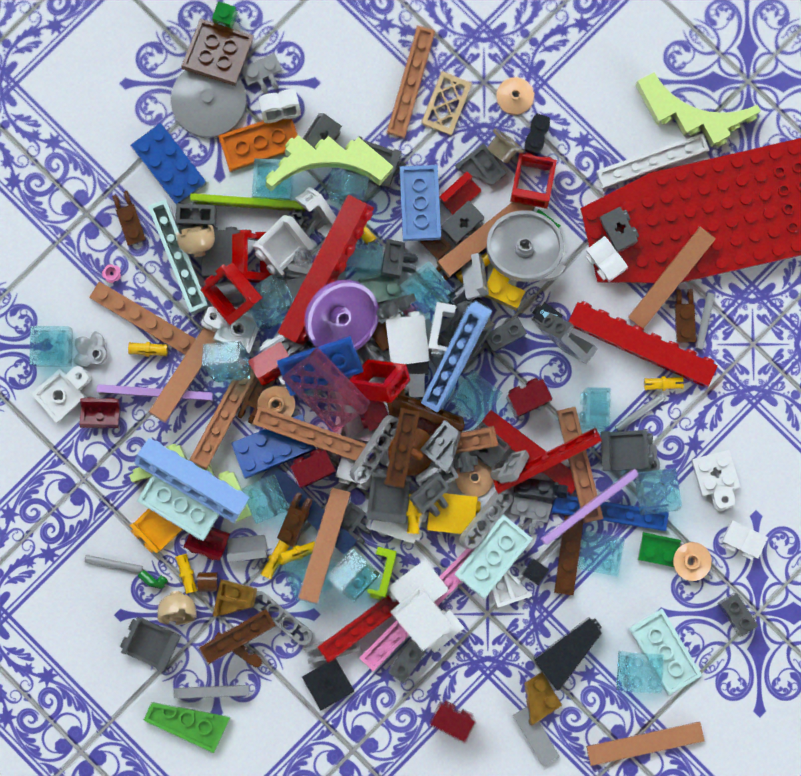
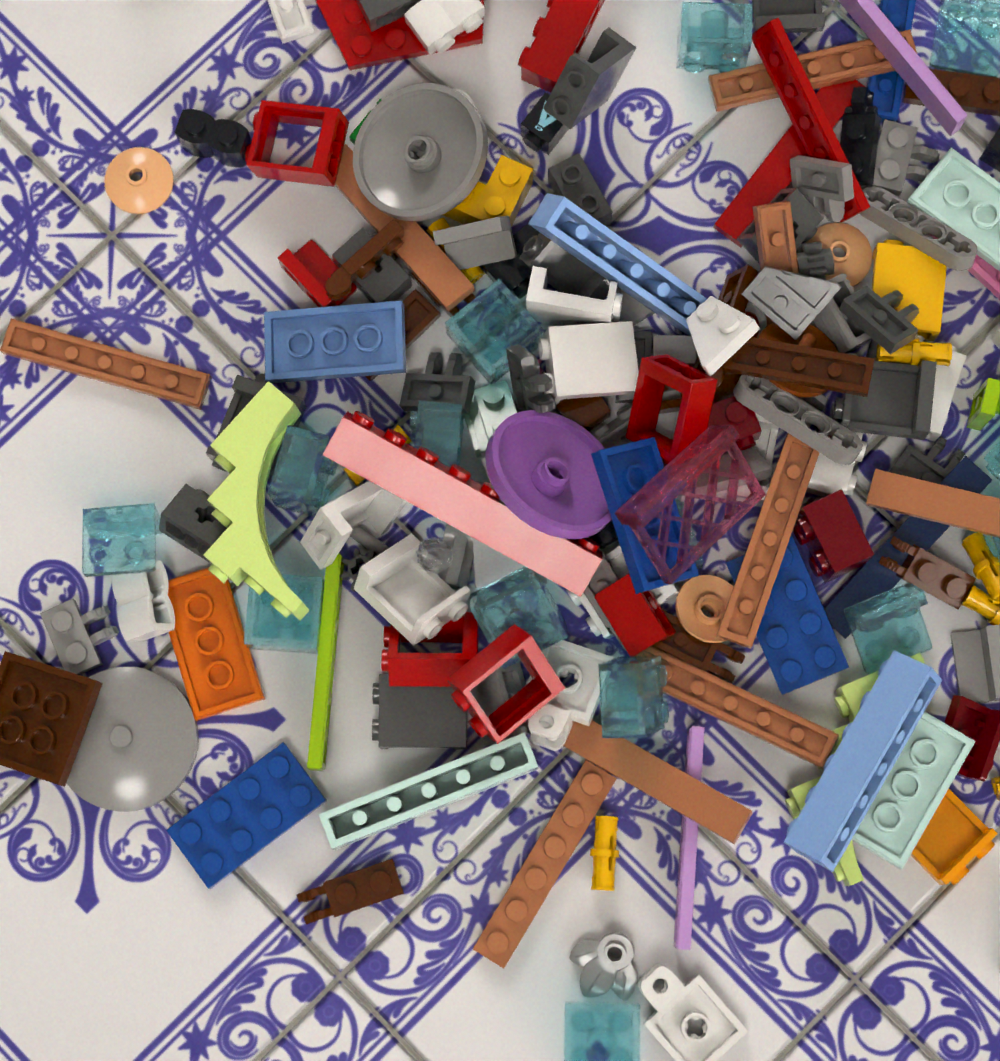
camera: 85 degrees left, 5 degrees down
(99, 412) = (729, 945): dark red bracket -> none
(111, 278) = (467, 927): bright pink plate -> none
(195, 215) = (350, 758): dark grey brick -> none
(196, 240) = (399, 752): tan cylinder -> none
(310, 92) = (119, 539): none -> clear light blue bracket
(419, 404) = (719, 332): none -> white wing
(453, 79) = (142, 274): tan window -> none
(461, 216) = (363, 261): none -> reddish brown hinge
(475, 397) = (695, 244): clear light blue brick -> none
(482, 166) = (267, 235): dark grey wing -> none
(504, 146) = (234, 194): dark tan piece -> none
(529, 397) = (696, 151): dark red brick -> none

